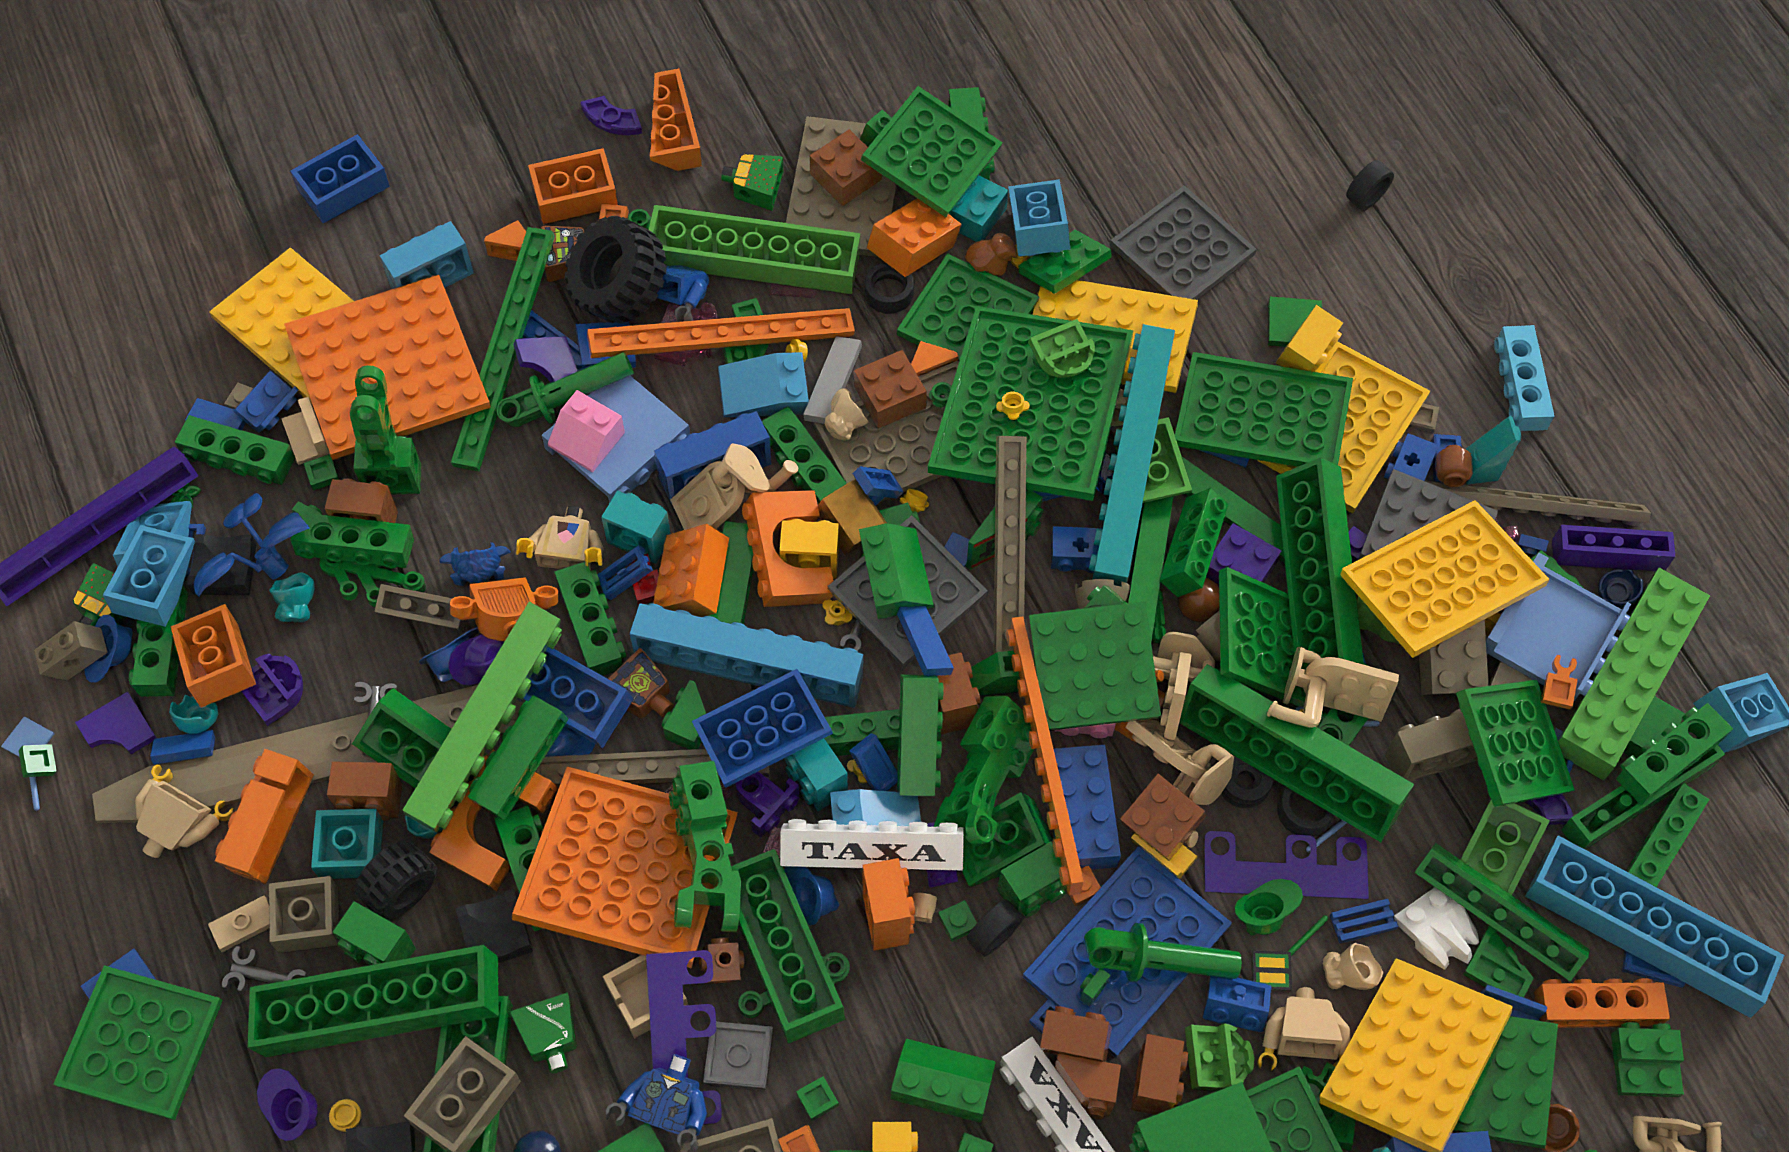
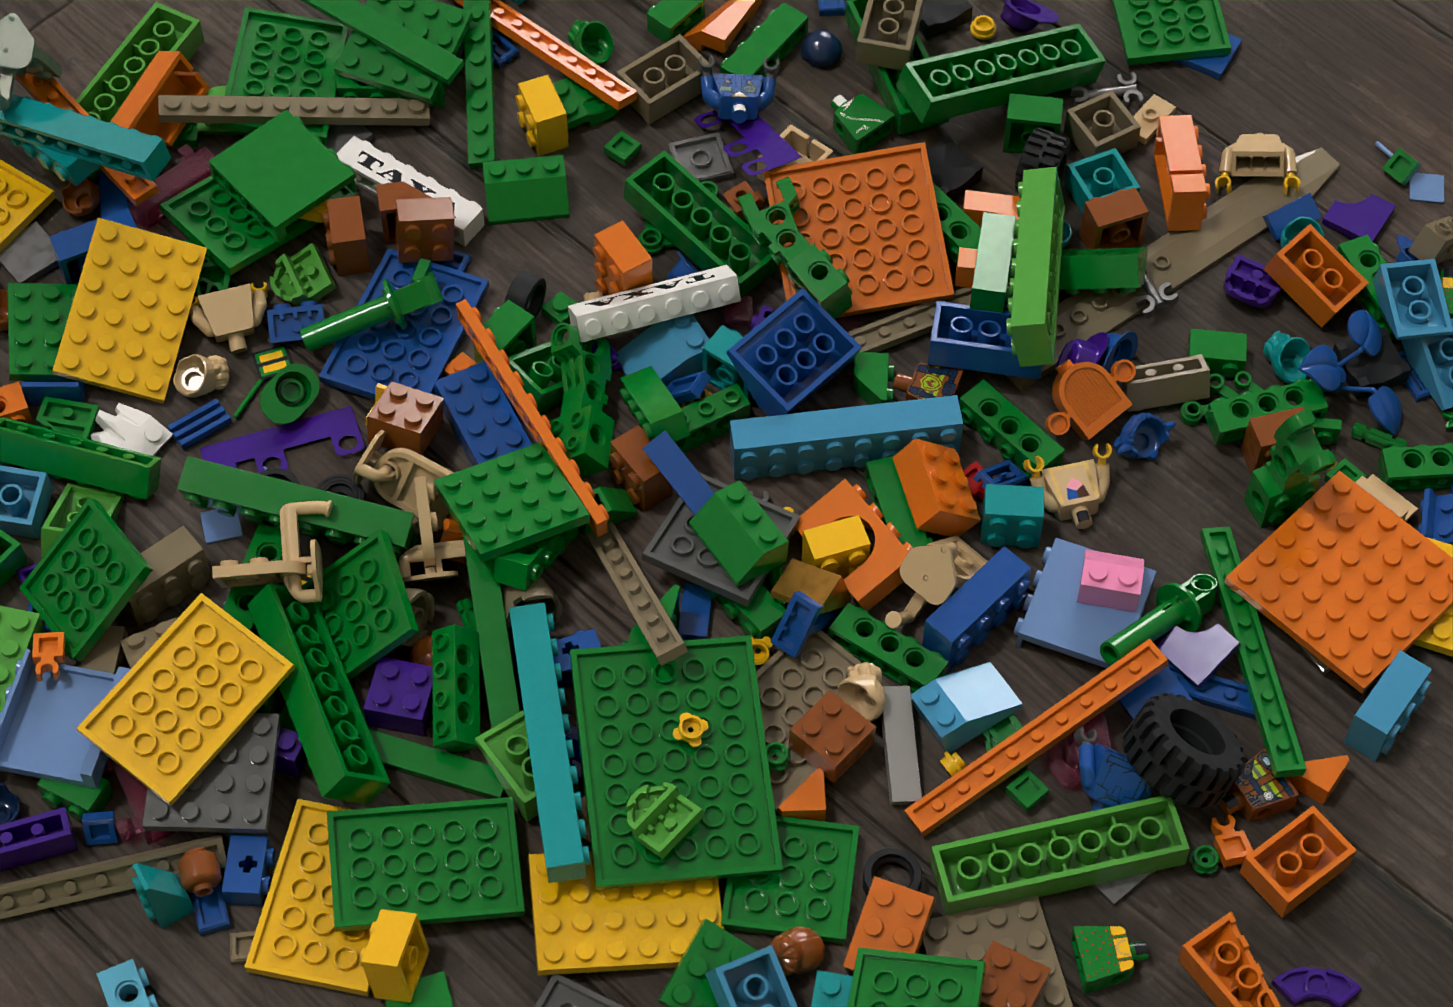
camera: 160 degrees right, 5 degrees down
(269, 503) = (1376, 437): none -> green axle
(354, 627) = (1221, 350): none -> green brick

